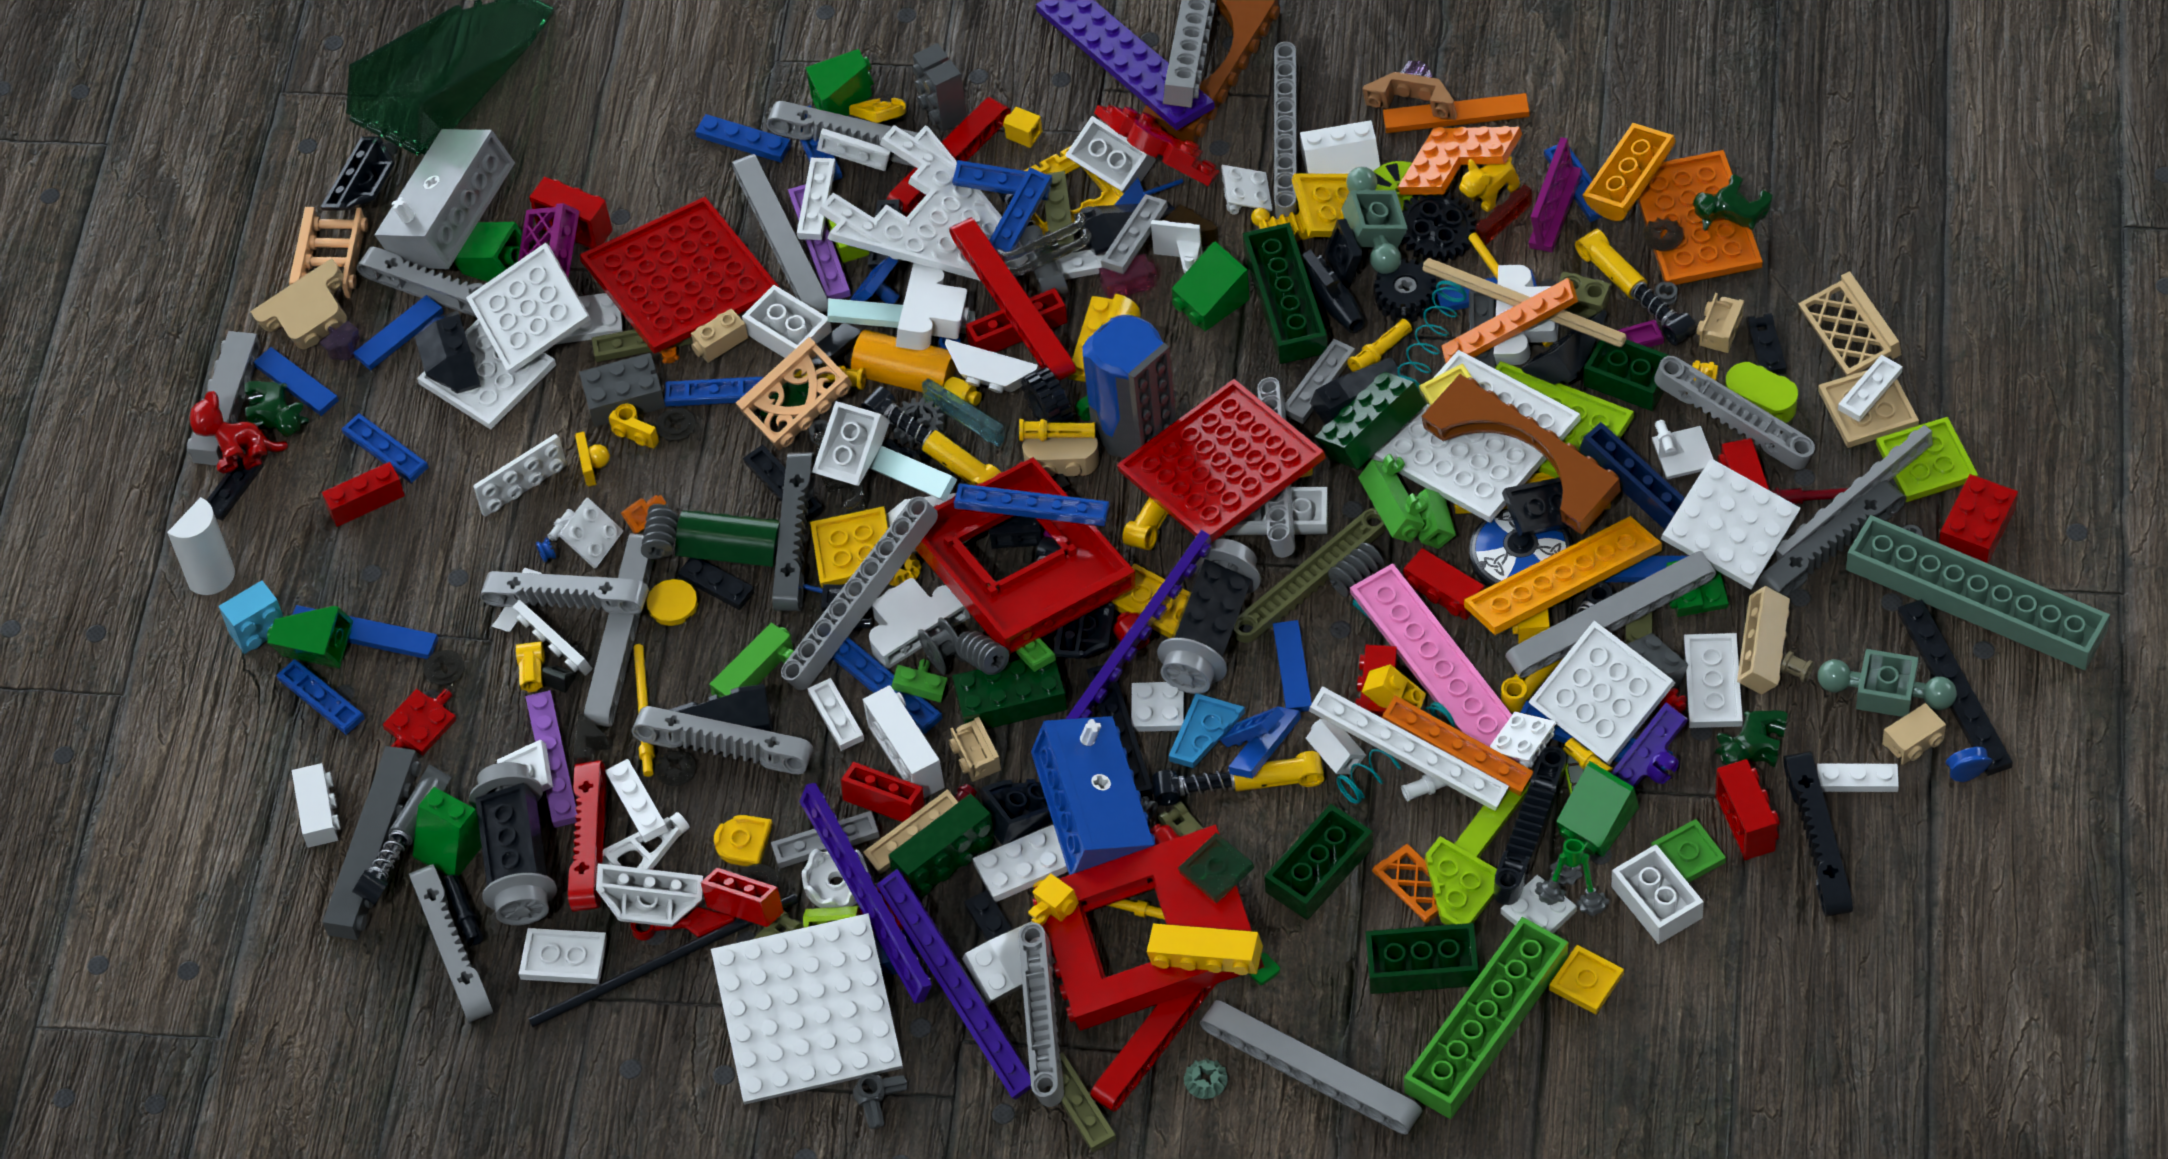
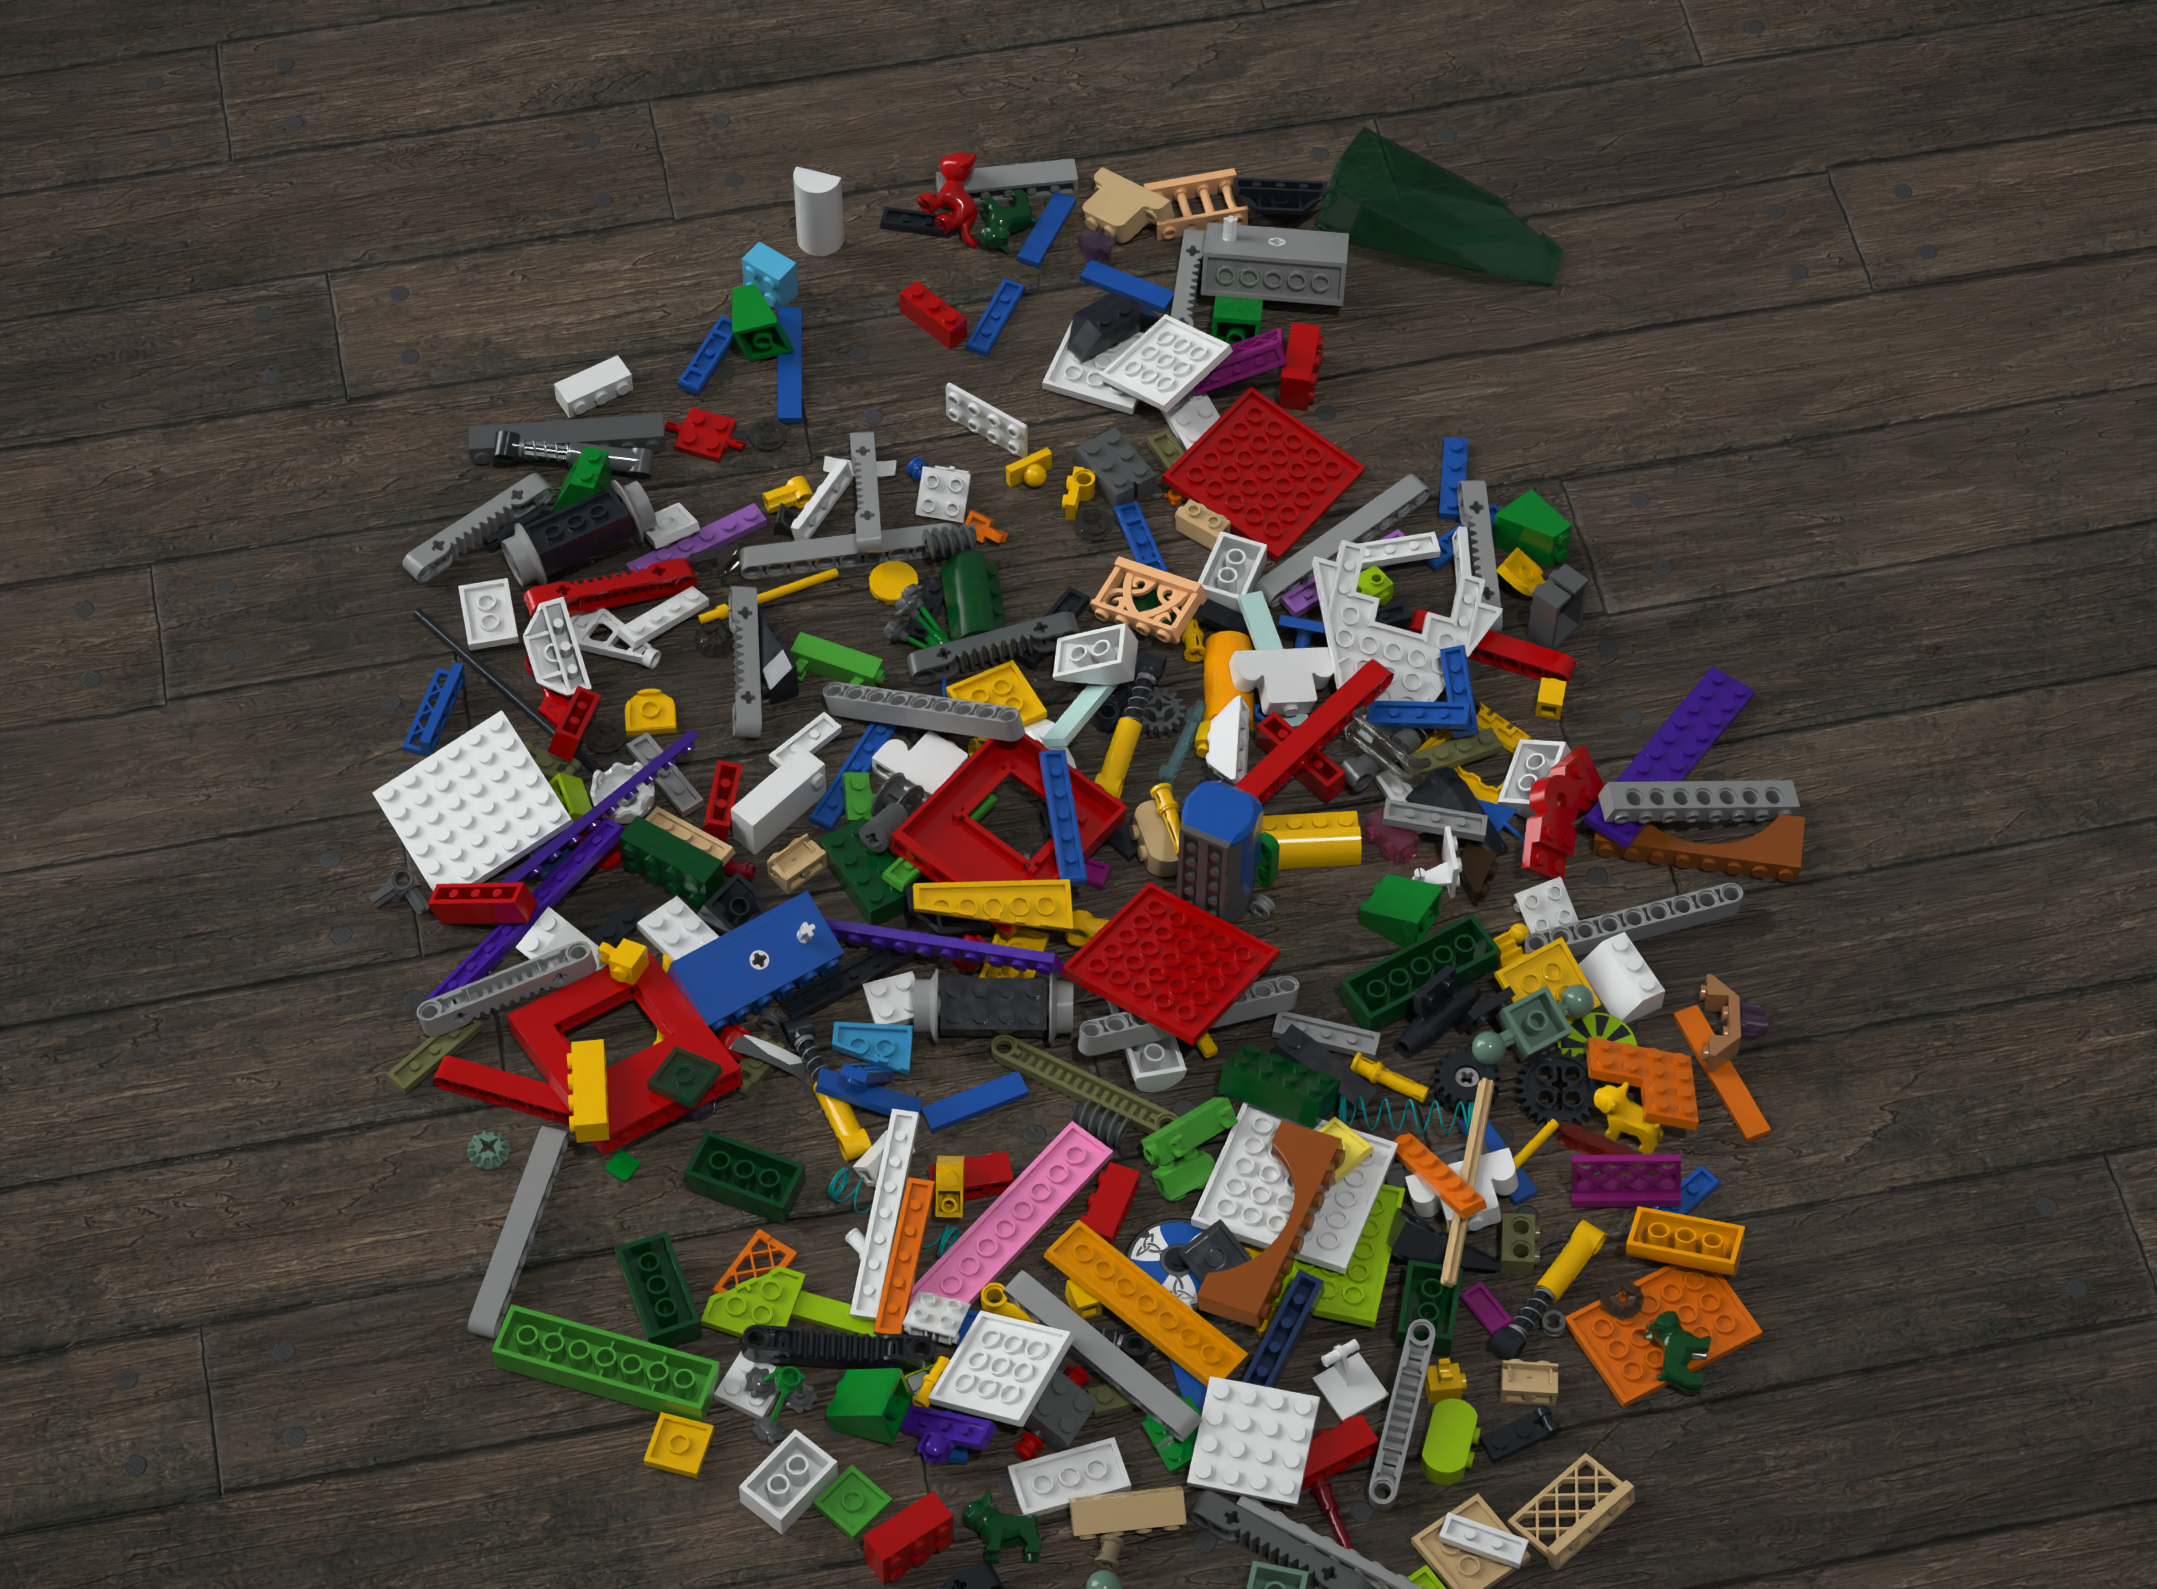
camera: 65 degrees right, 0 degrees up
(667, 1018) = (439, 714): none -> blue fence
(731, 580) = (906, 605): none -> dark grey plant
(932, 1015) = (482, 903): none -> red brick
(1117, 560) = (1022, 903): none -> yellow wing
(1187, 814) = (771, 1054): none -> dark grey sticker

